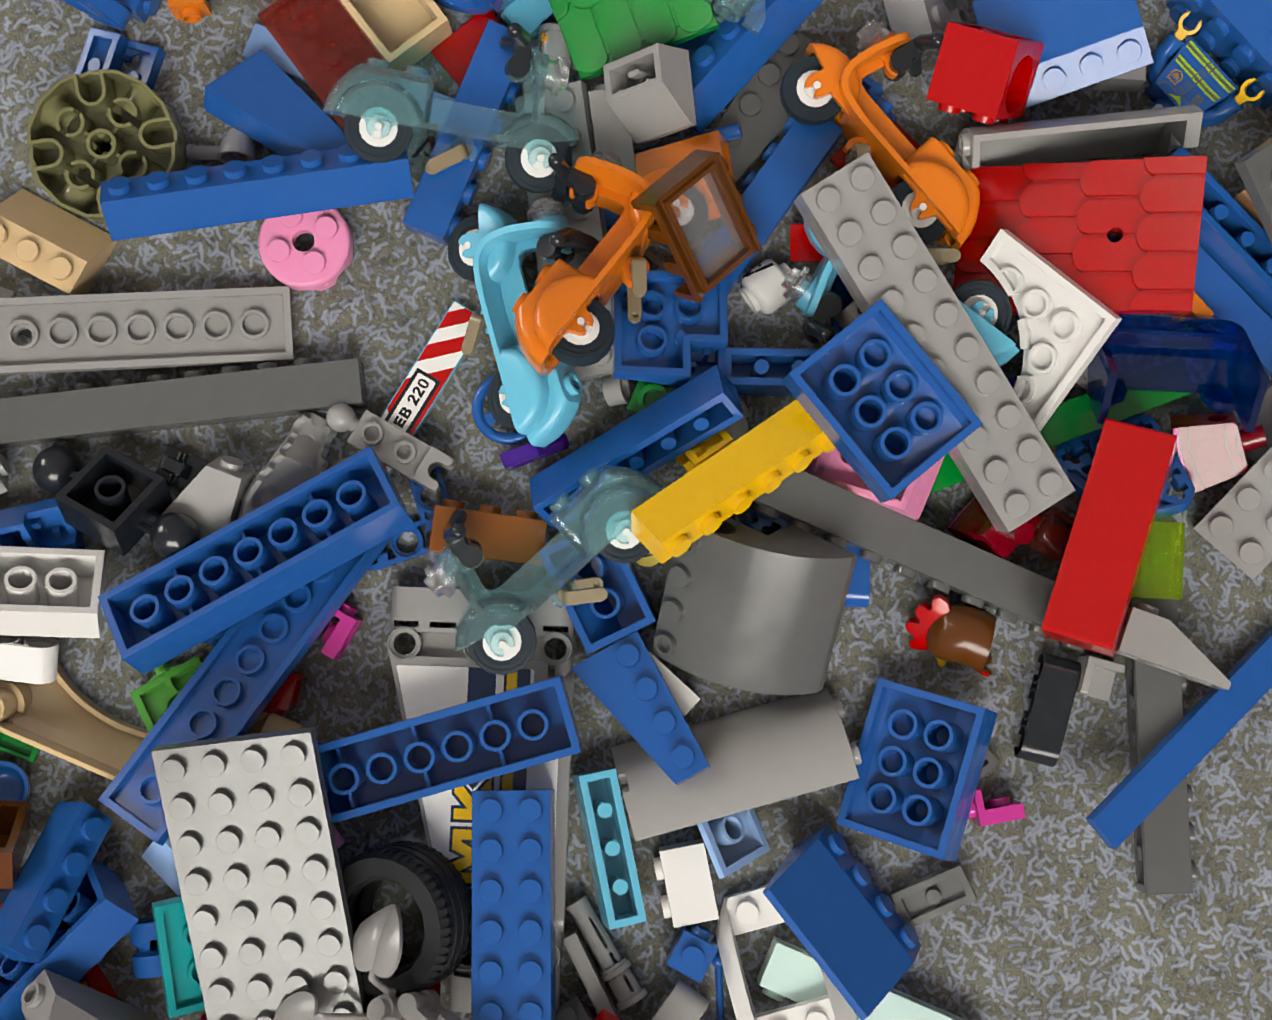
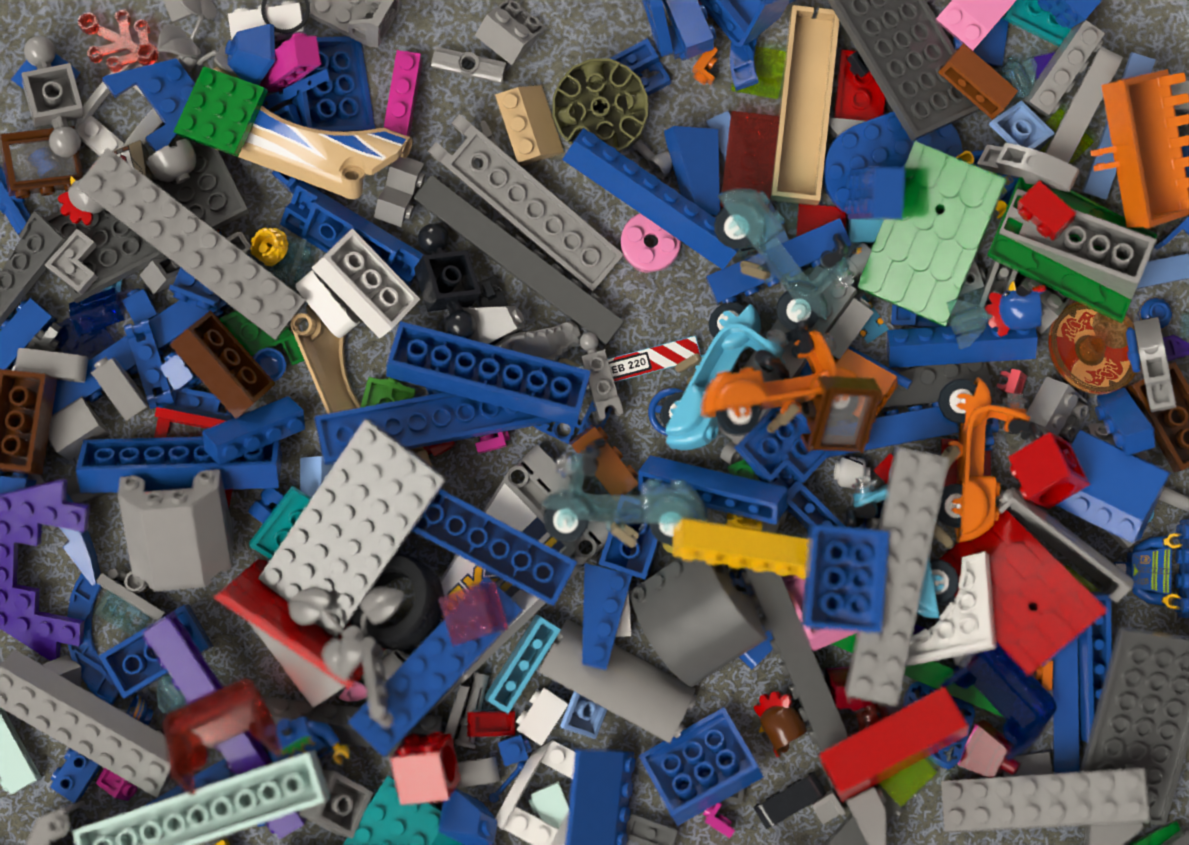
camera: 45 degrees right, 0 degrees up
(496, 849) = (473, 613): none -> clear pink bracket
(529, 453) = (660, 442): dark purple tile -> none
(638, 948) = (490, 723): none -> red tile
(651, 92) = (882, 329): light grey slope -> none
(850, 21) = (1015, 382): none -> coral tile

